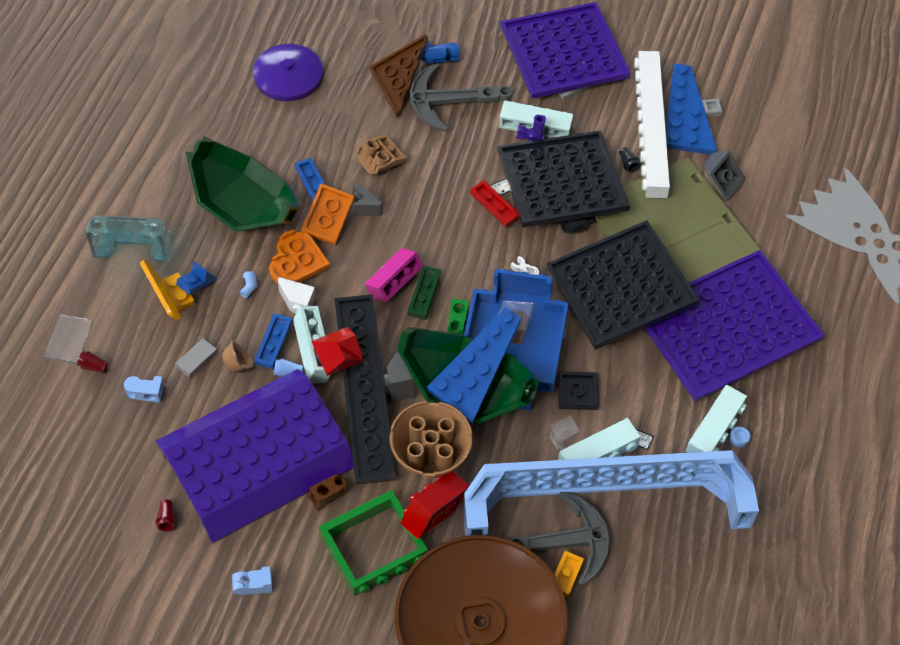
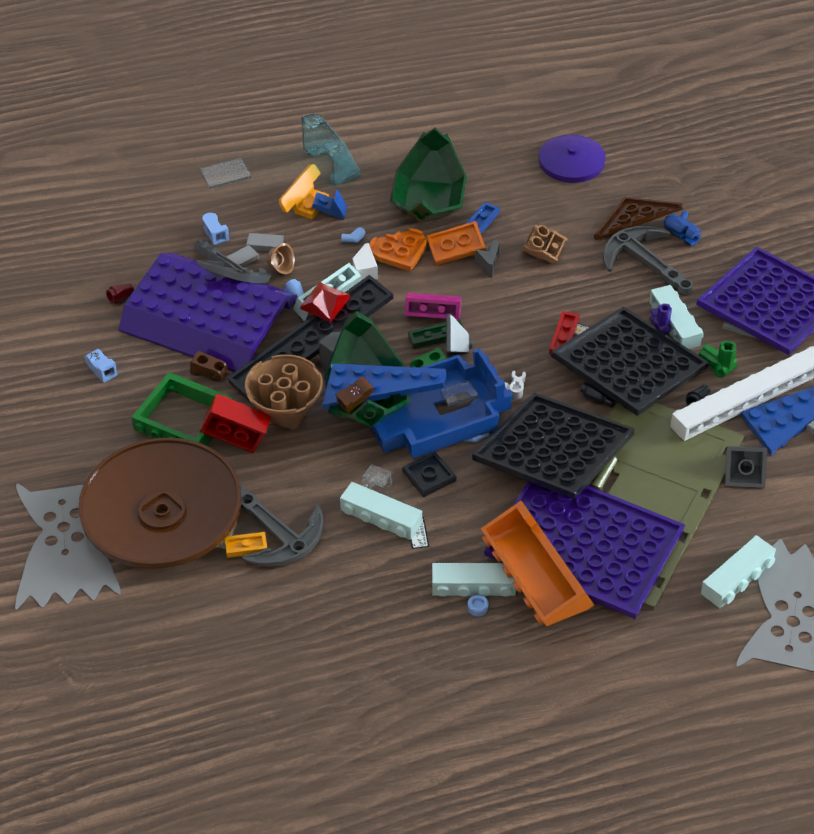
camera: 60 degrees right, 10 degrees down
(91, 362) = (213, 191): dark red cone -> none
(201, 390) = (244, 256): none -> light grey tile
(239, 403) = (223, 266): none -> dark grey piece
(273, 341) = (313, 272): blue plate -> none
(449, 281) = (456, 337): none -> slope
(487, 390) = (354, 394): none -> reddish brown leg
(607, 122) = (722, 360): none -> green piece
(715, 470) = (281, 453): light blue arch -> none
(750, 372) = (535, 566): none -> orange windscreen
(821, 246) = (738, 572): none -> light aqua brick

